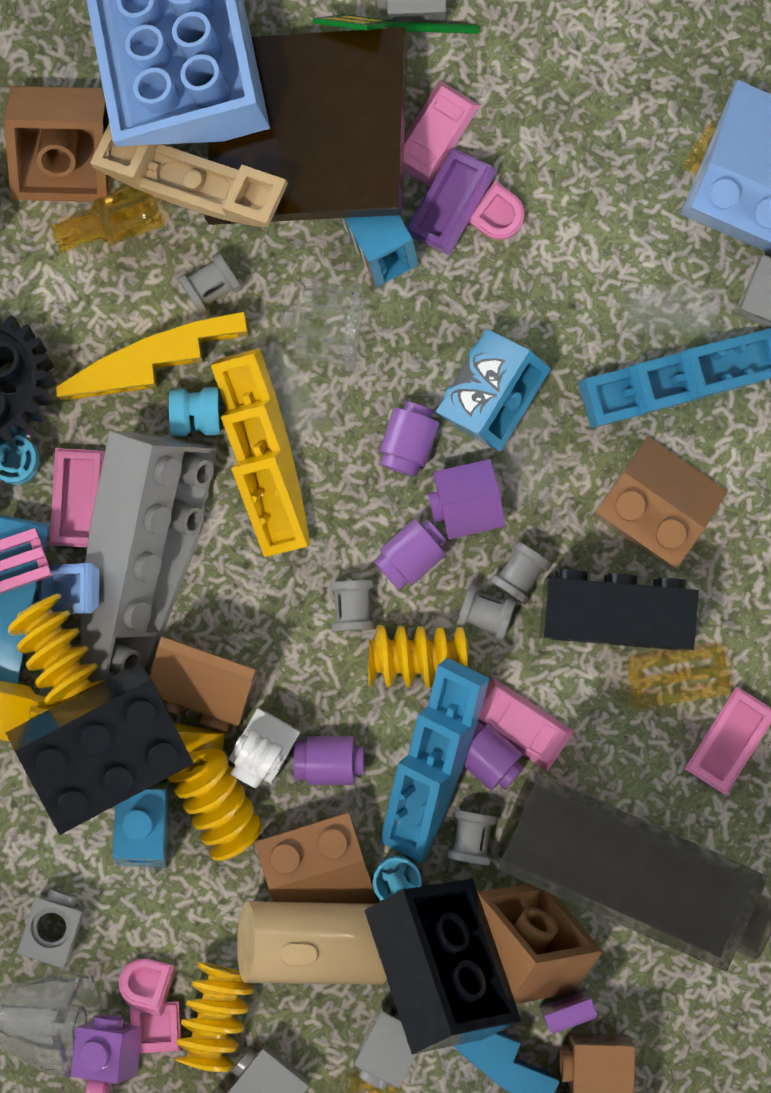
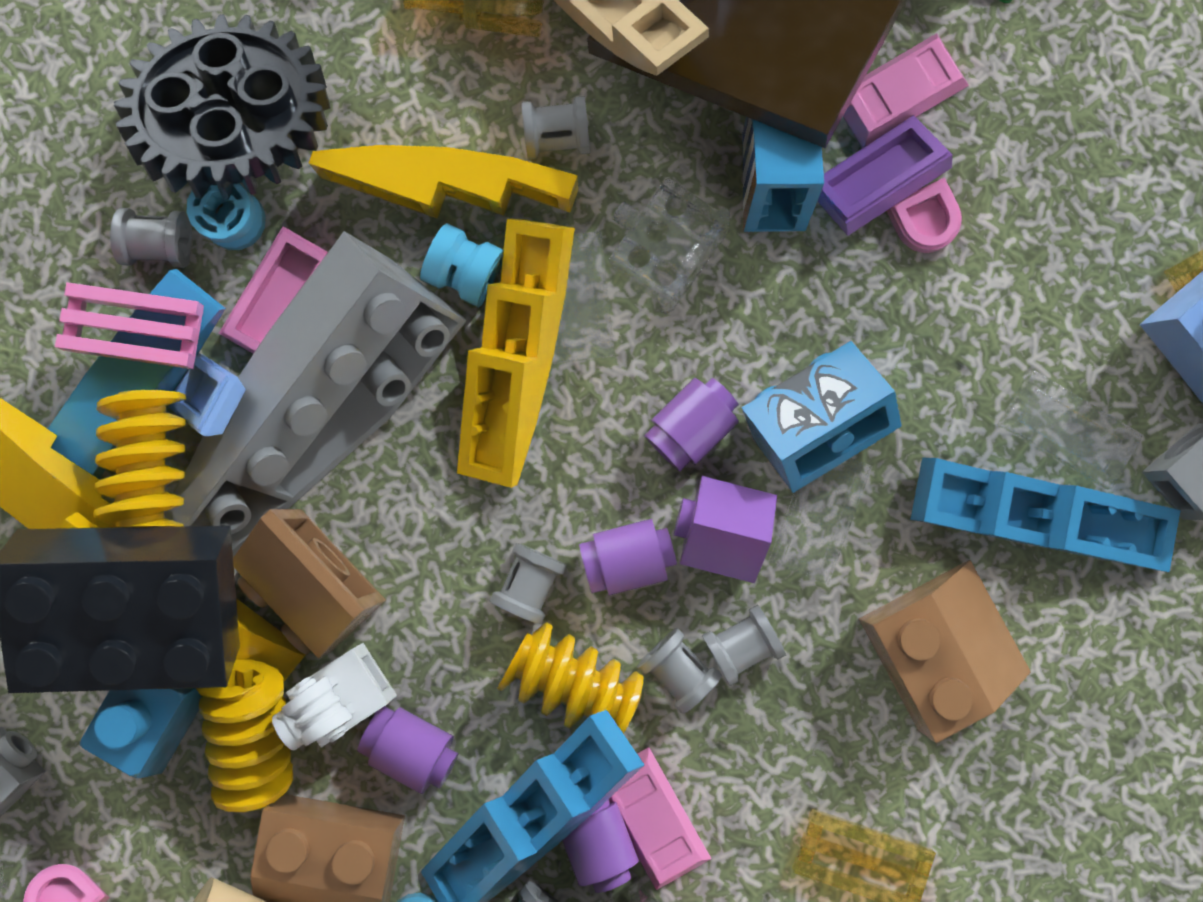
camera: 30 degrees right, 0 degrees up
(619, 611) = (842, 760): black brick -> none

